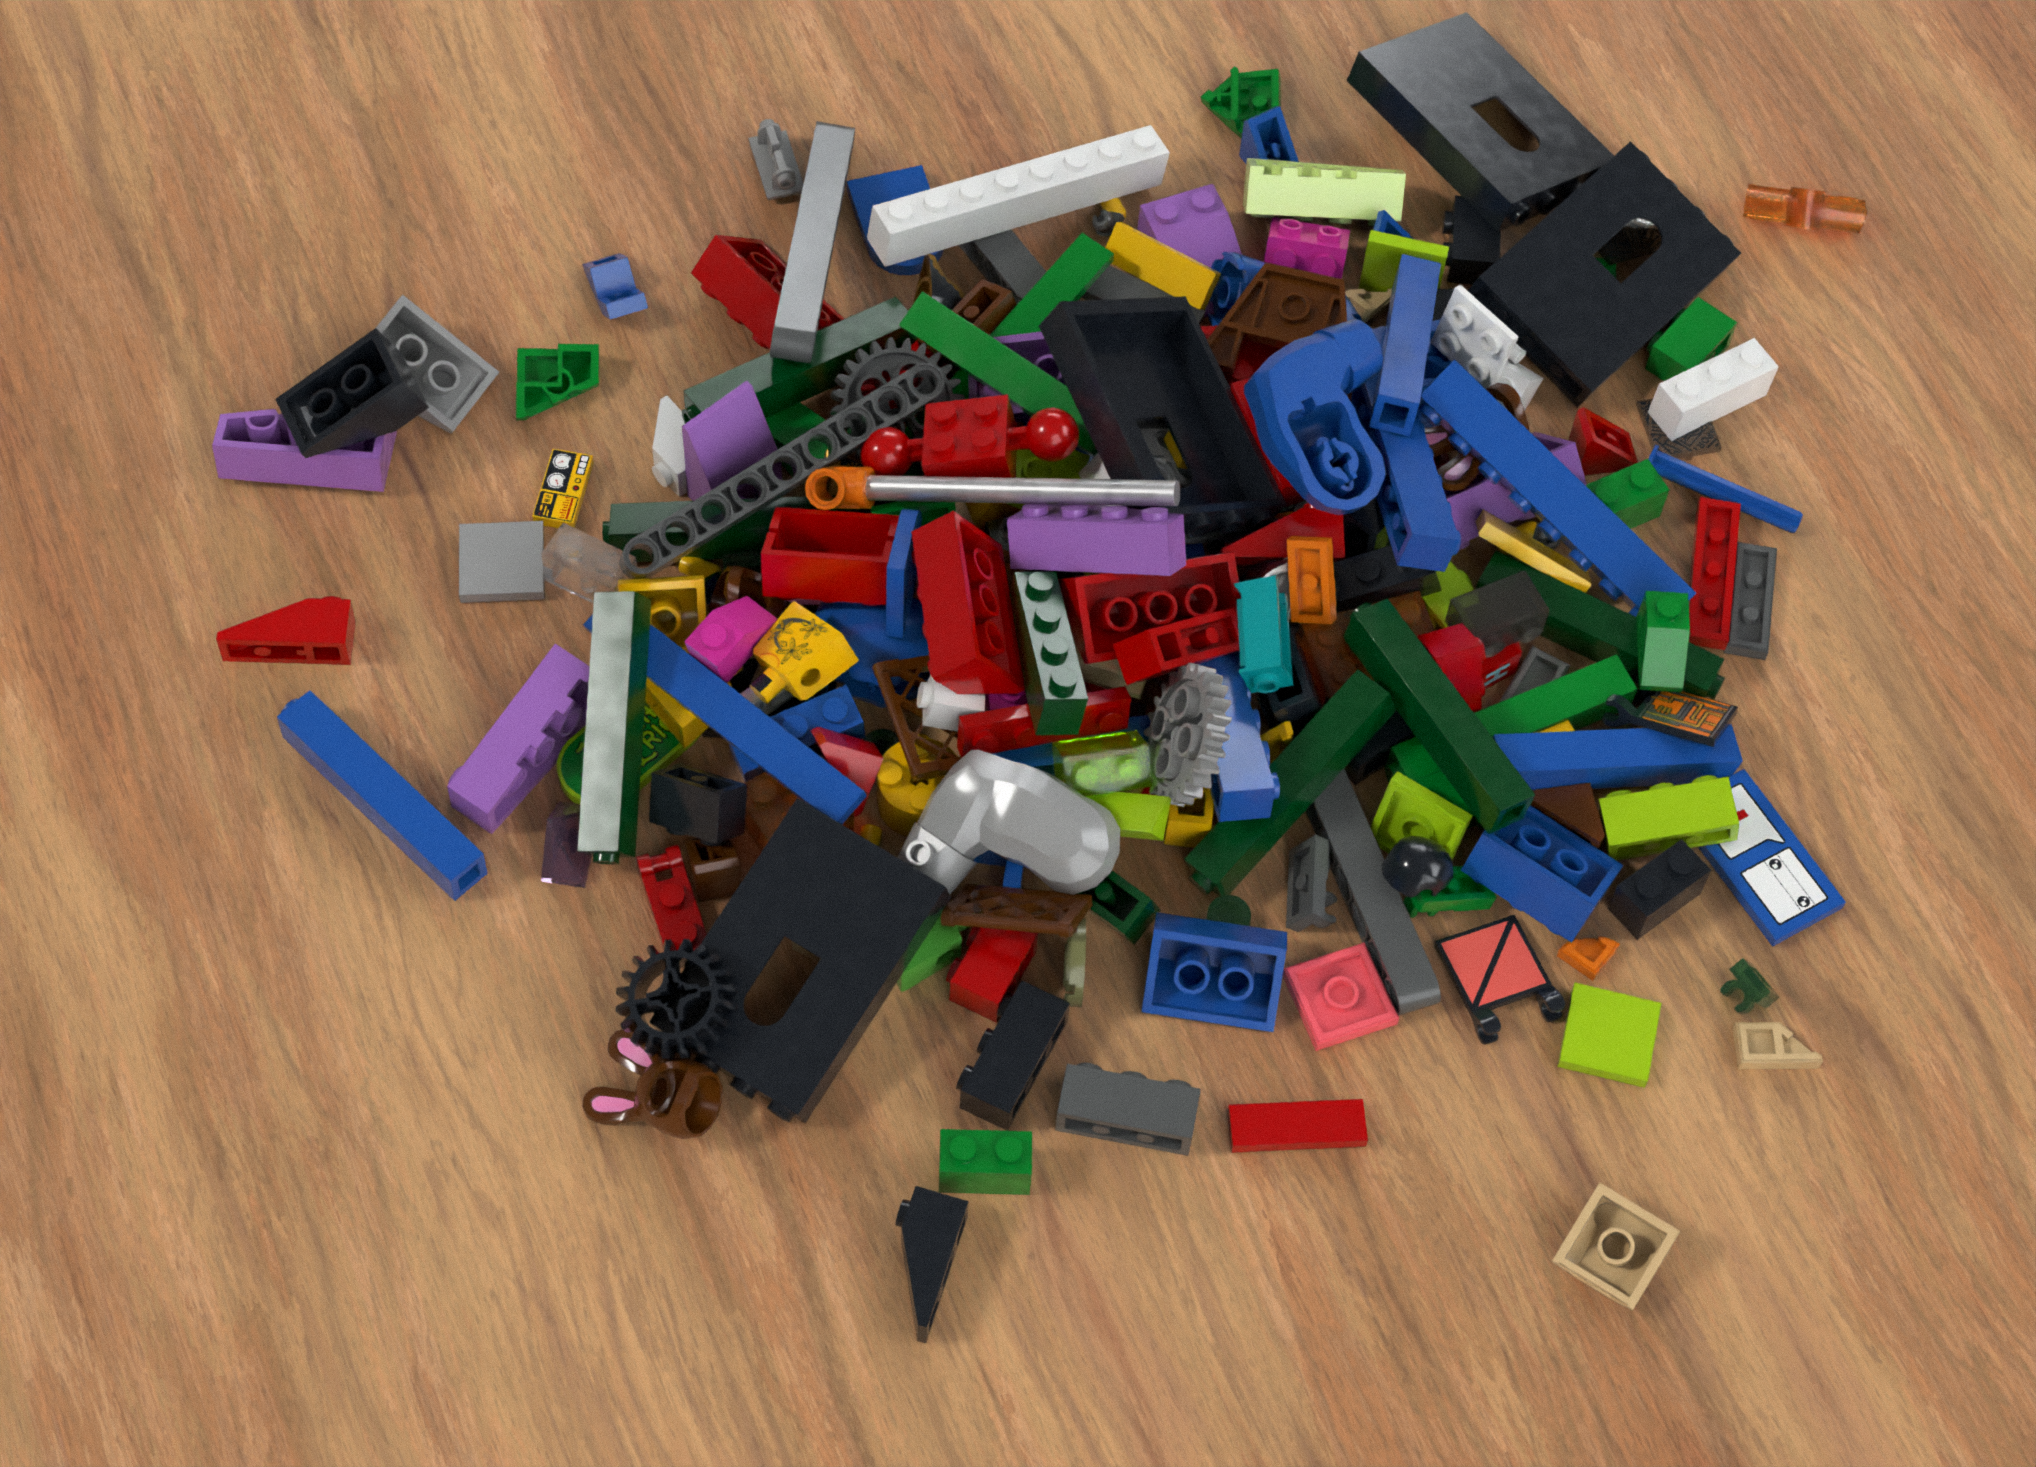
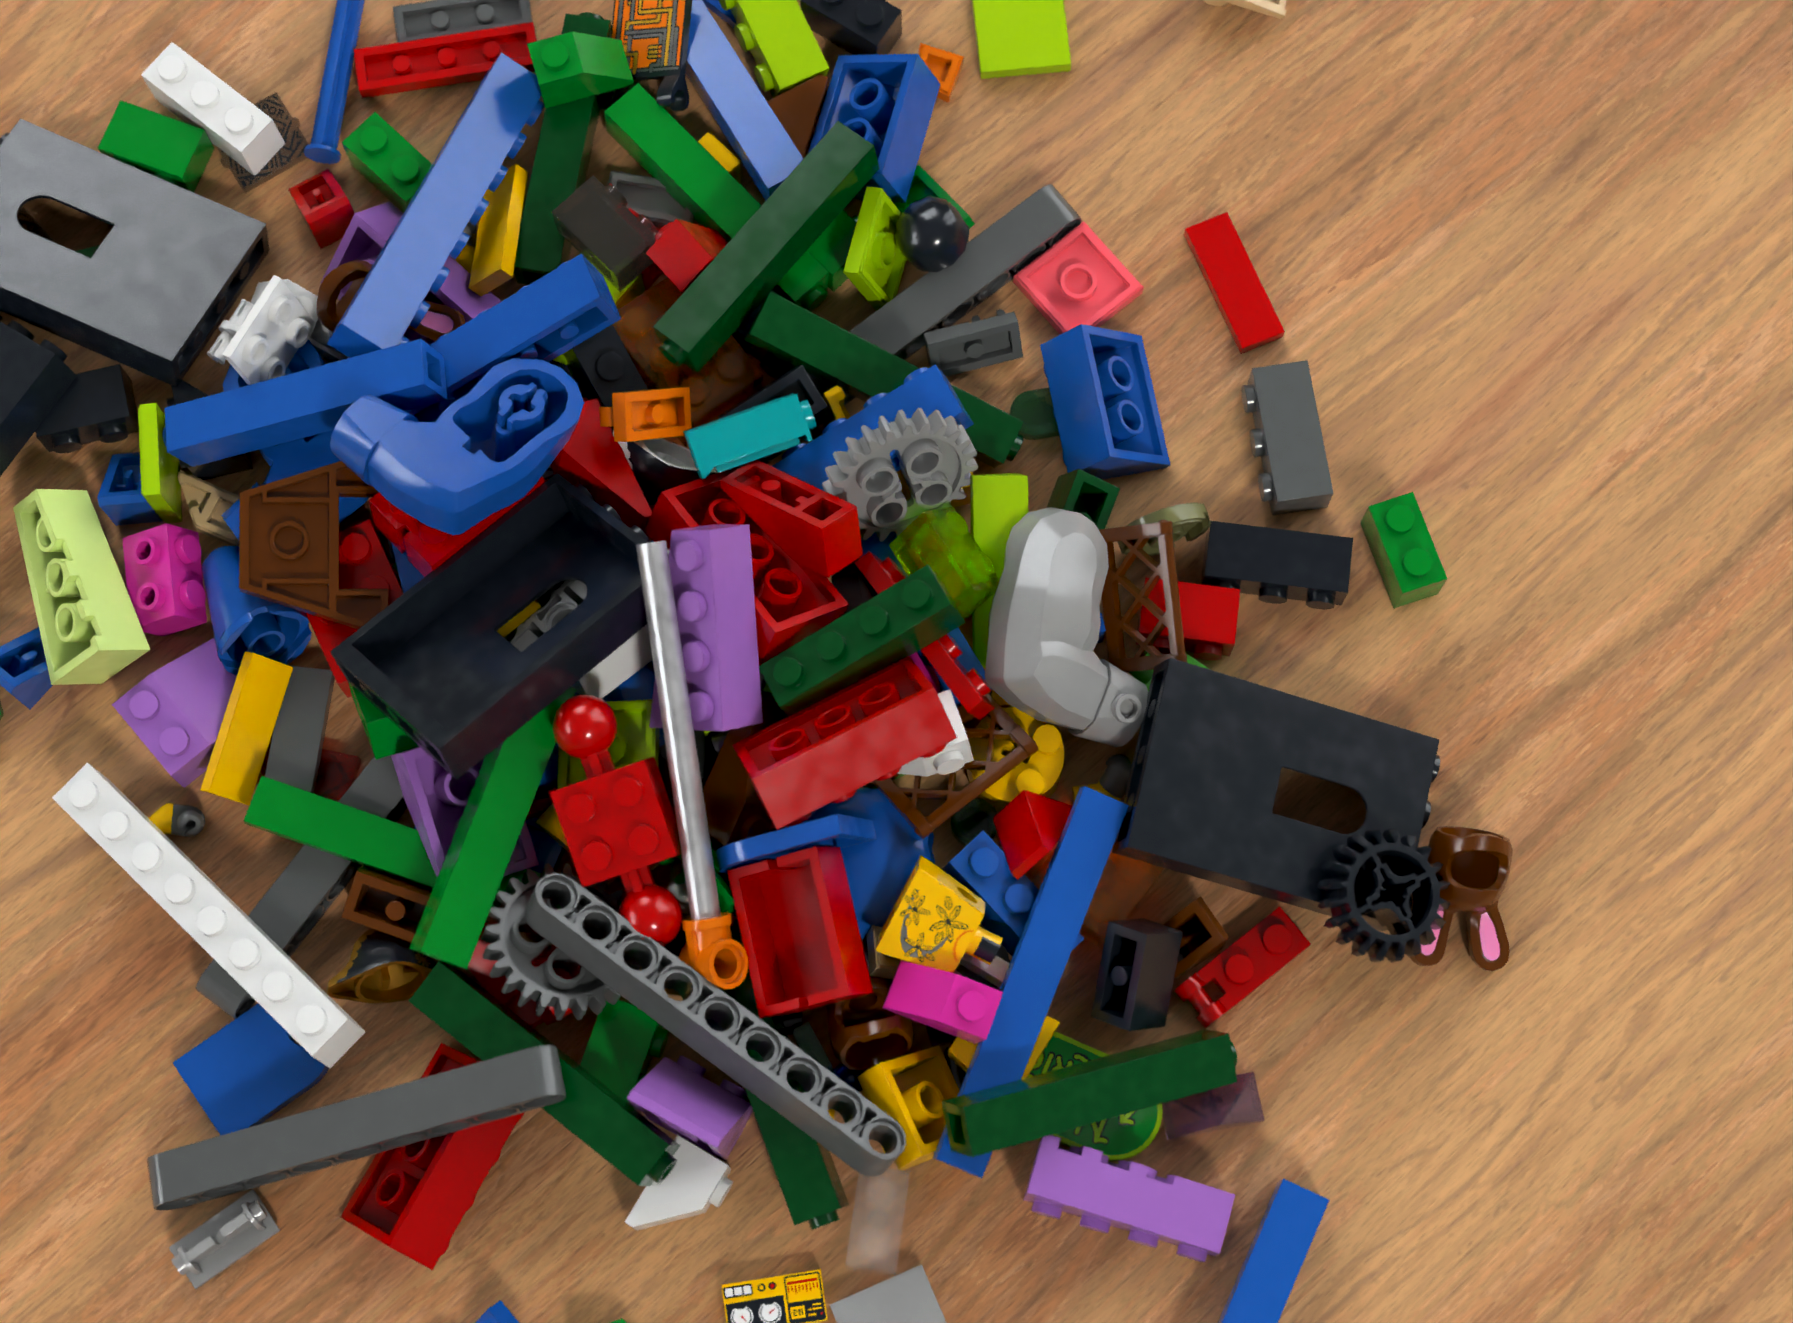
camera: 105 degrees left, 15 degrees up
(929, 1242) = (1503, 574): black slope -> none
(1495, 968) = (991, 151): flag -> none

